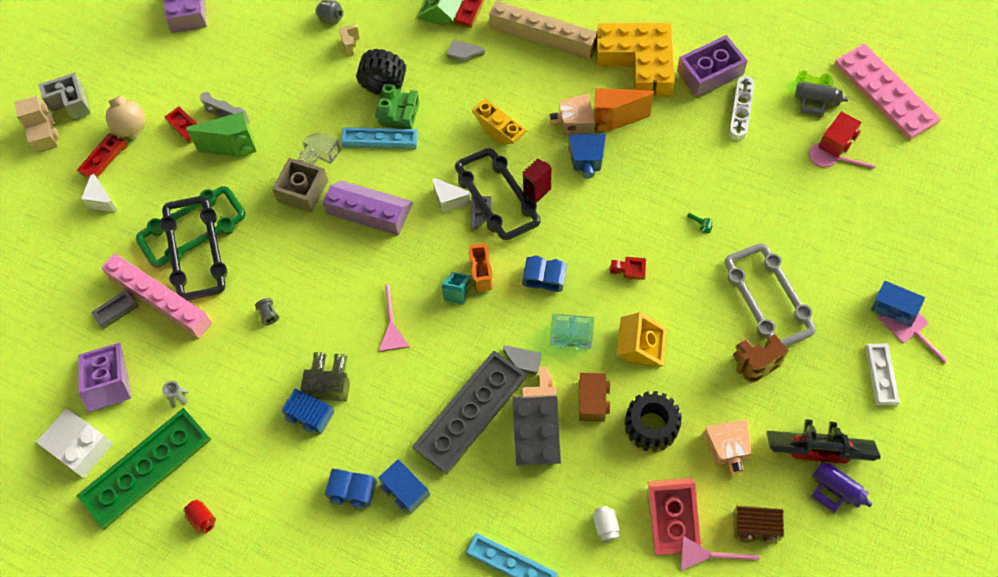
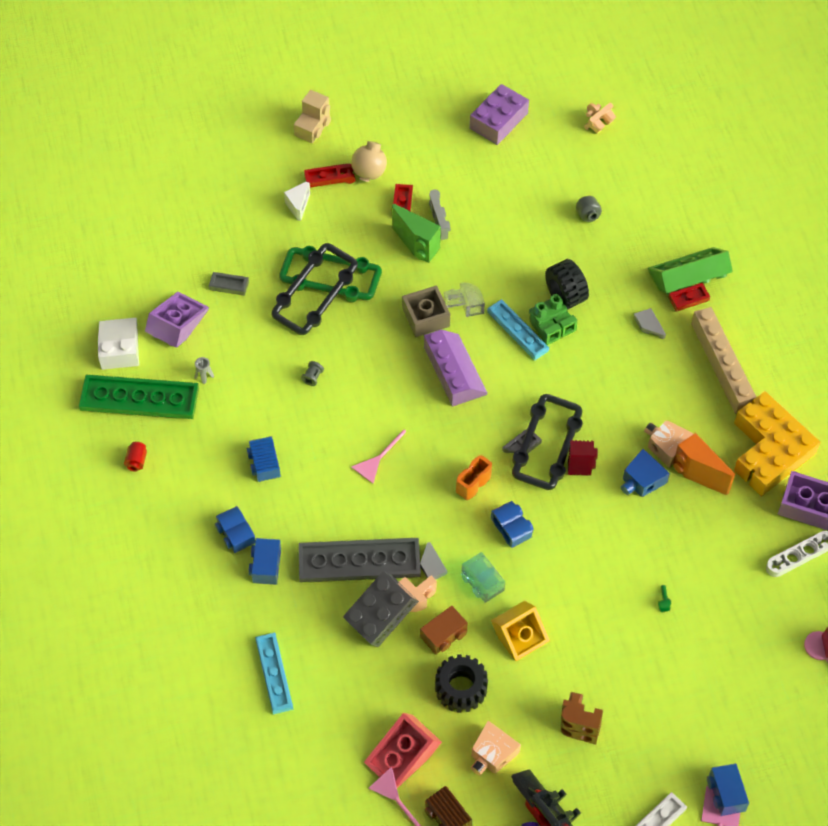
camera: 45 degrees right, 5 degrees down
(66, 93) = (353, 113): light grey brick -> none
(157, 295) = (260, 299): bright pink brick -> none
(326, 384) = (293, 454): clear smoke brick -> none
(348, 35) = (577, 239): tan bracket -> none
(450, 196) = (512, 412): white slope -> none
(456, 287) = (444, 474): teal slope -> none
(497, 123) = (605, 393): yellow slope -> none
(606, 524) = (356, 711): white brick -> none
(632, 267) = (574, 579): red plate -> none
(772, 263) = (653, 725): light grey bar -> none

